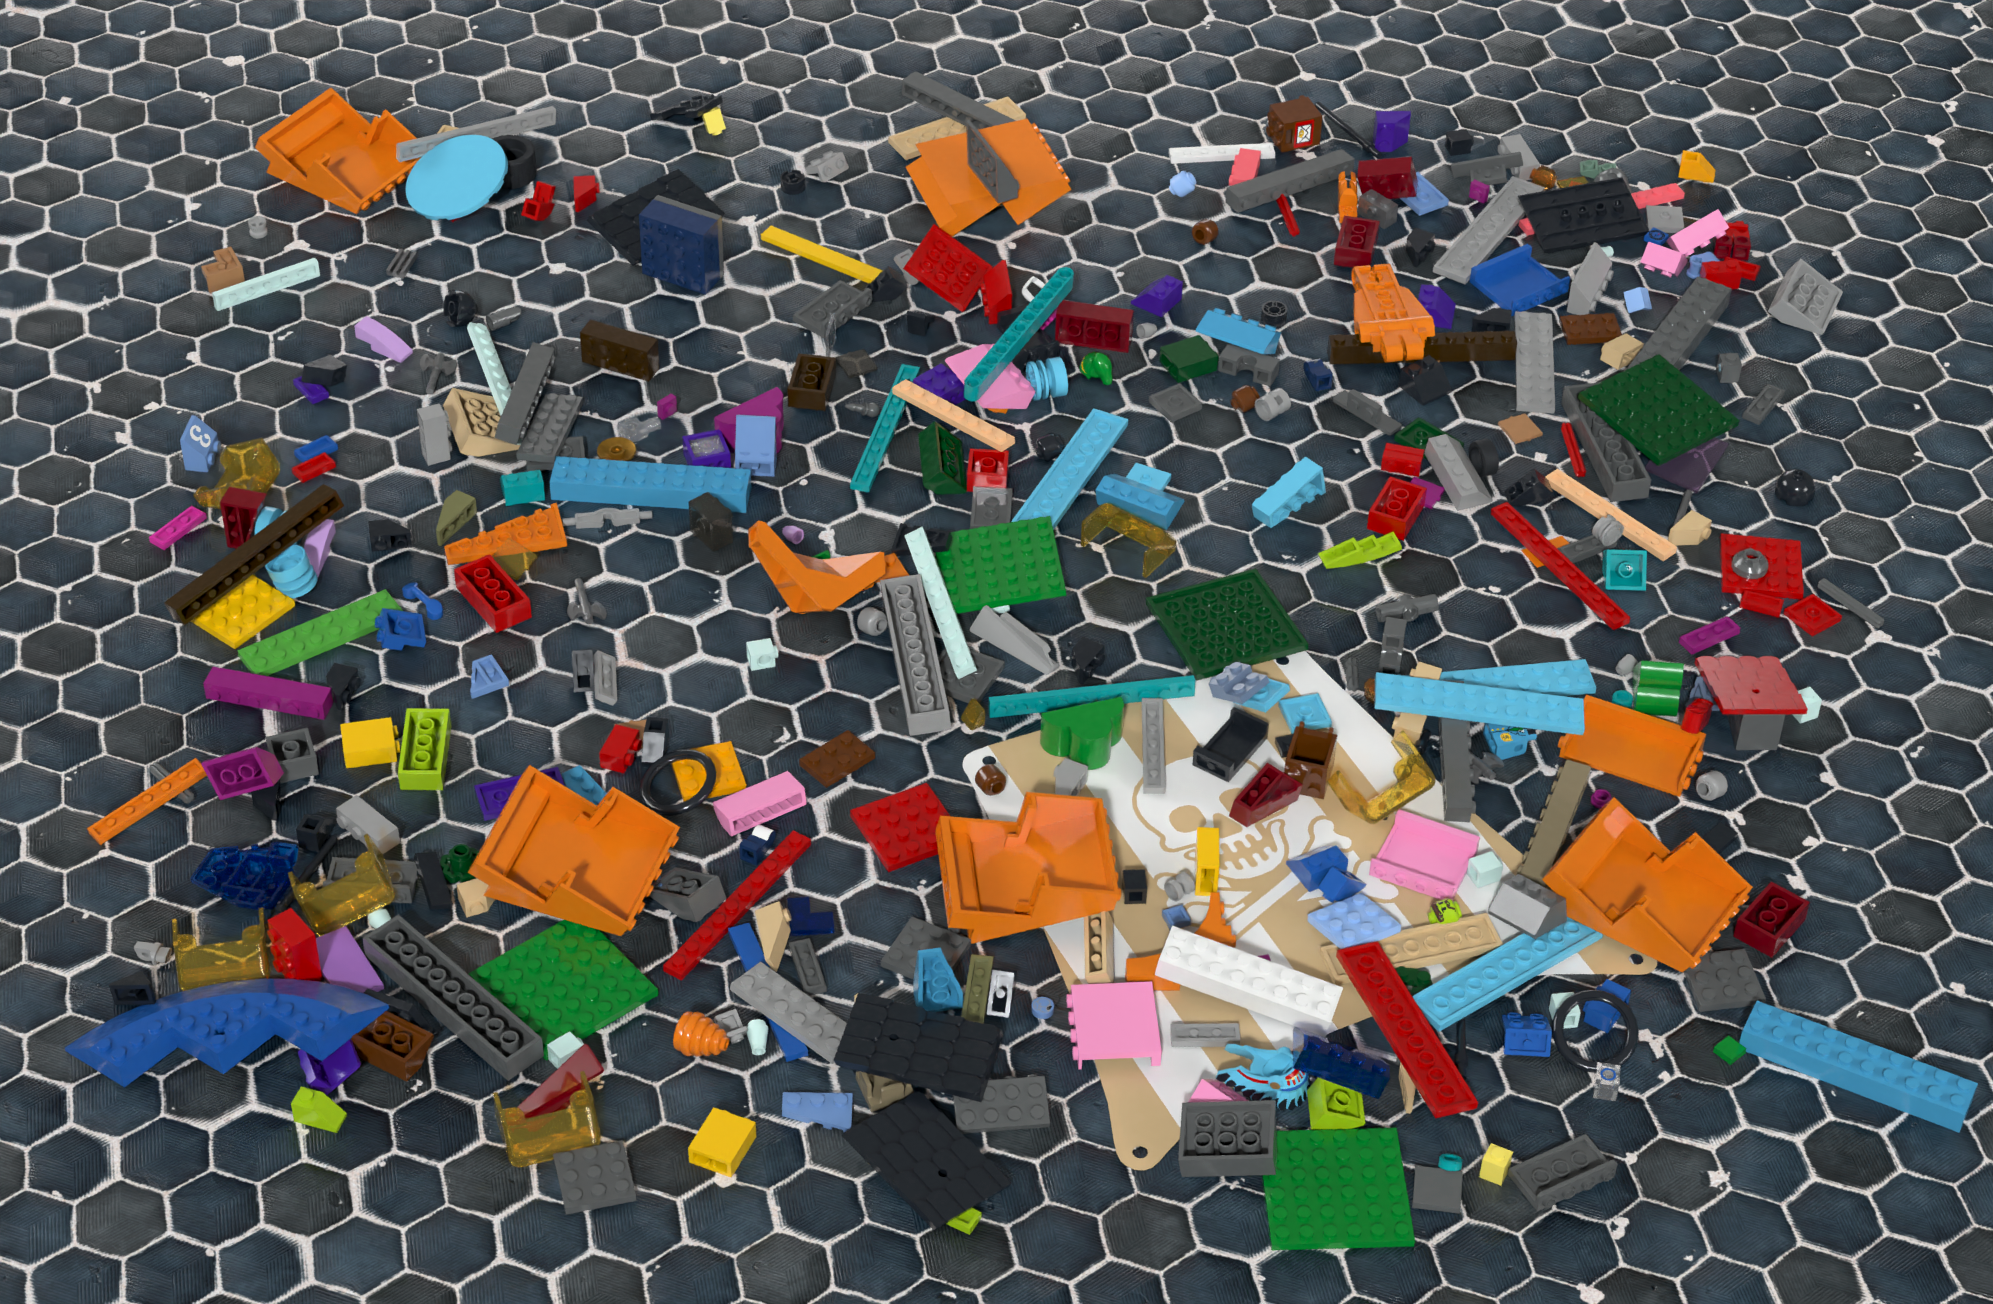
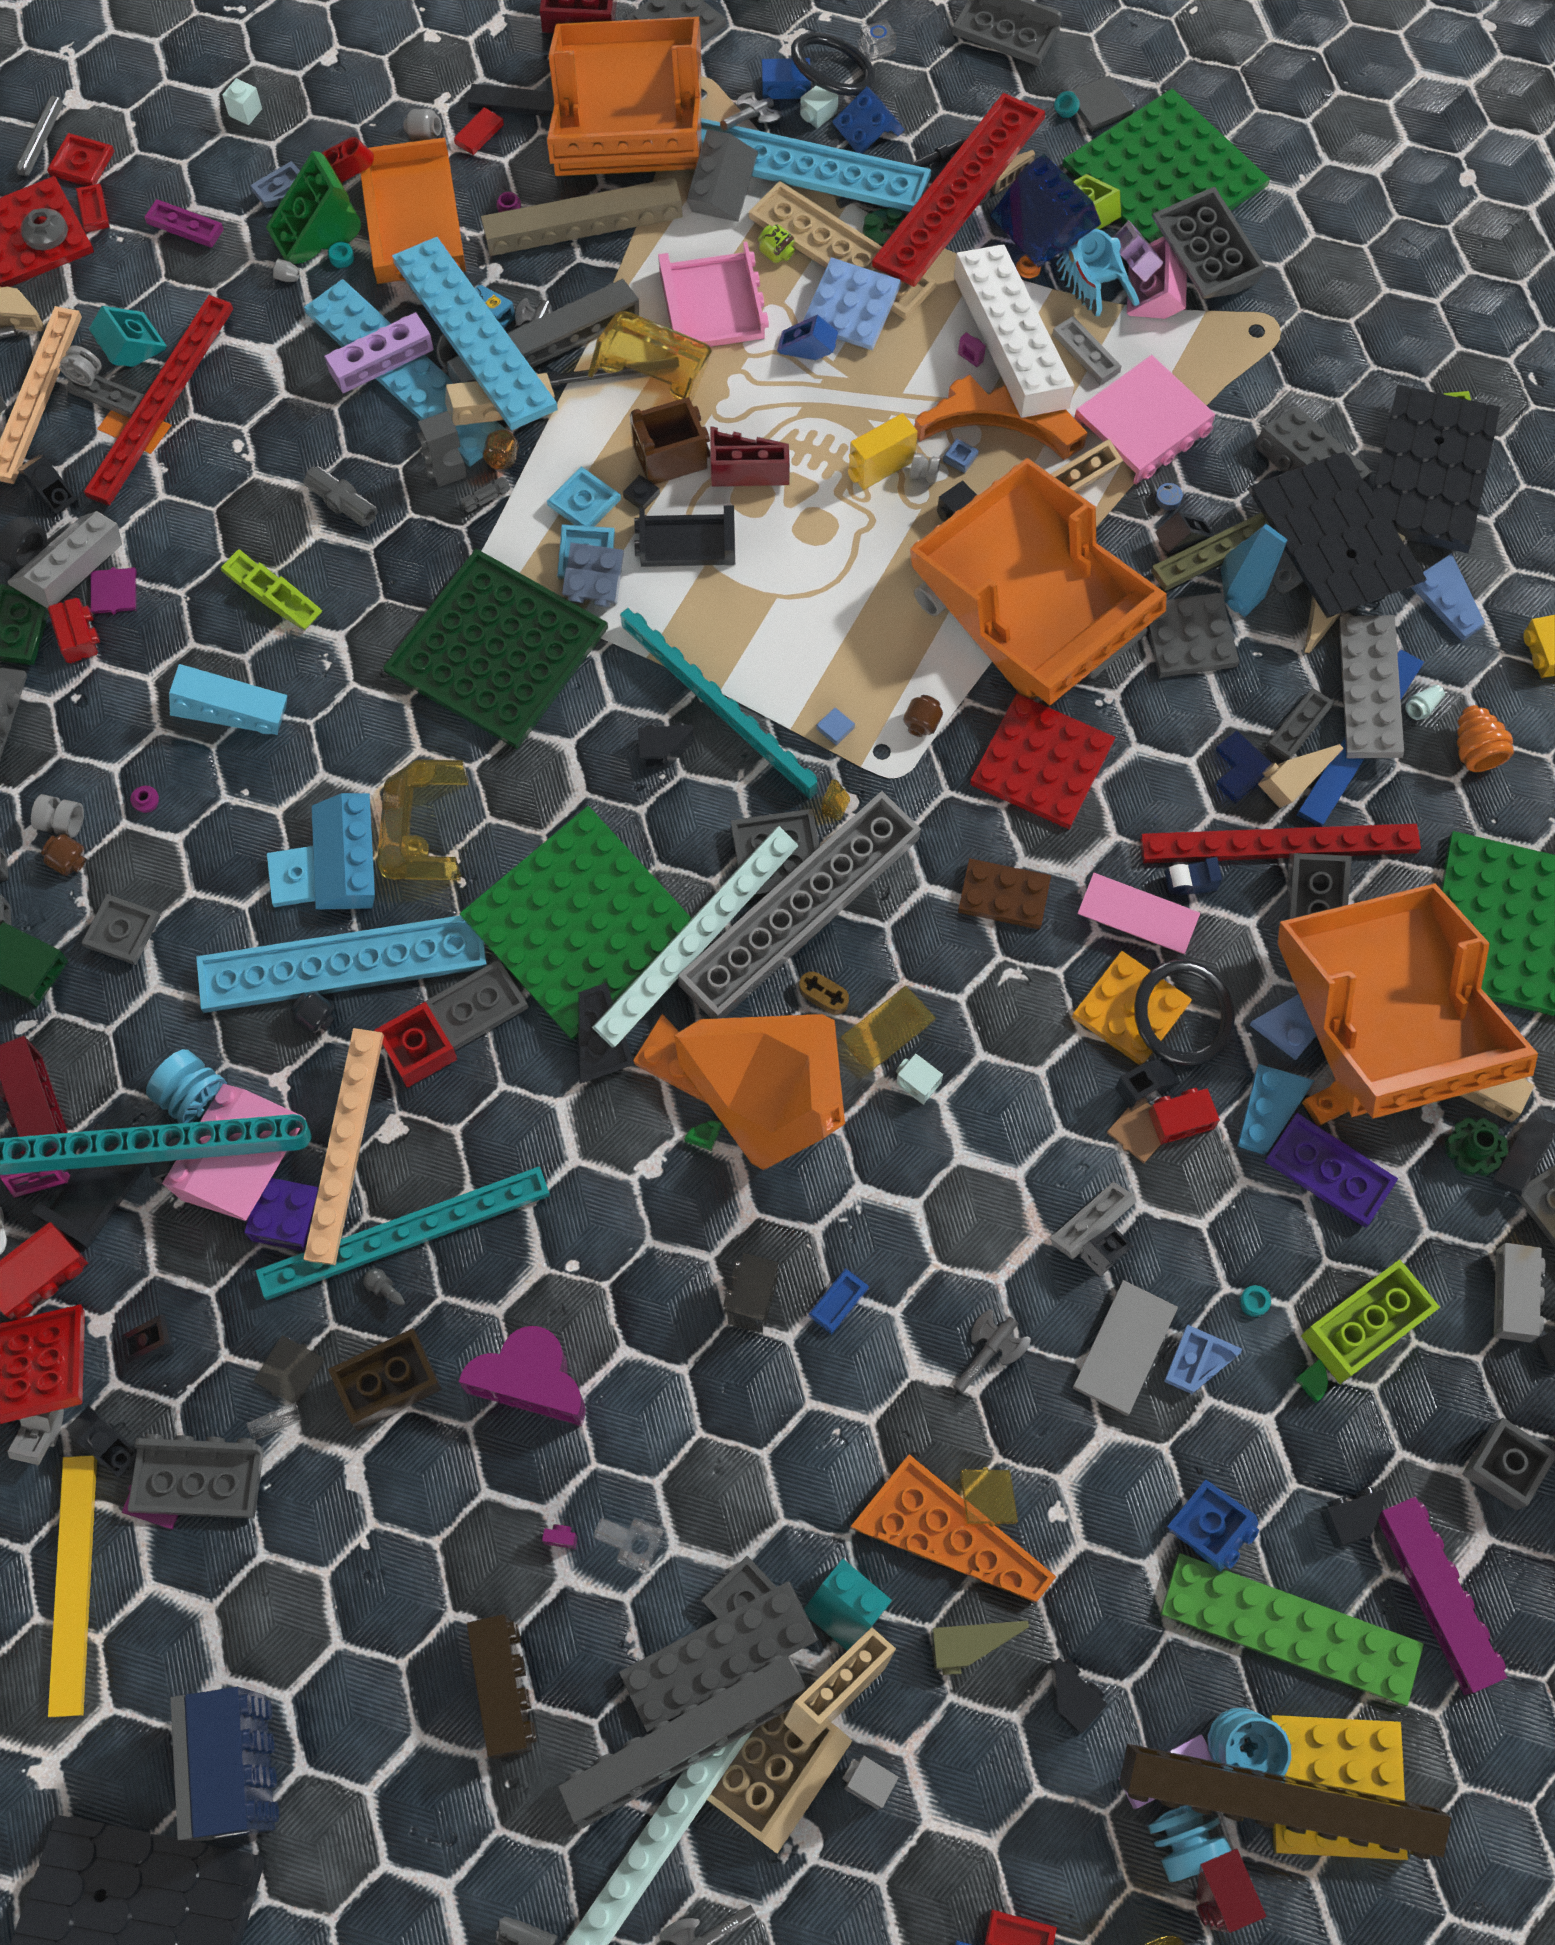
camera: 125 degrees left, 25 degrees up
(369, 742) = (1407, 1400): yellow brick -> none
(433, 606) = (1135, 1582): blue bar -> none
(486, 445) = (839, 1686): none -> tan brick
(489, 721) = (1255, 1301): none -> teal tile
(492, 593) = (1074, 1460): red brick -> none
(526, 656) = (1125, 1348): none -> light grey tile
(597, 518) = (832, 1460): light grey piece -> none
(616, 449) = (690, 1517): pearl gold dish -> none
(647, 483) = (731, 1435): dark azure brick -> none
(674, 563) = (838, 1301): none -> blue tile
(706, 449) = (624, 1403): dark purple piece -> none
(732, 1025) = (1439, 727): light grey bracket -> none
(756, 444) = (581, 1338): medium blue slope -> none
(793, 534) = (685, 1200): lavender hose -> none
(805, 662) = (888, 1028): none -> clear yellow piece
(855, 648) = (820, 998): none -> pearl gold beam
(872, 621) = (773, 997): light grey head -> none
(942, 461) = (428, 1117): dark green slope -> none
(1014, 639) = (683, 840): light grey wedge -> none
(1025, 744) = (835, 726): none -> medium blue tile
(1070, 777) = (869, 644): light grey slope -> none
(1083, 731) = (785, 659): green brick -> none
(1097, 366) = (106, 1062): green hair -> none
(1153, 746) = (743, 605): light grey plate -> none
(1246, 1091) = (1137, 251): none -> lavender slope
(1255, 445) = (146, 805): none -> magenta plate
(1314, 865) = (796, 373): blue slope -> none
(1396, 508) = (176, 583): red brick -> none
(1485, 869) = (689, 241): light aqua brick -> none
(1496, 1164) = (1043, 69): light yellow brick -> none
(1506, 658) = (379, 352): none -> lavender brick
(1588, 974) = (752, 108): none -> flat silver piece
(1687, 817) = (478, 131): none -> red tile
(1754, 697) = (264, 135): piece -> none

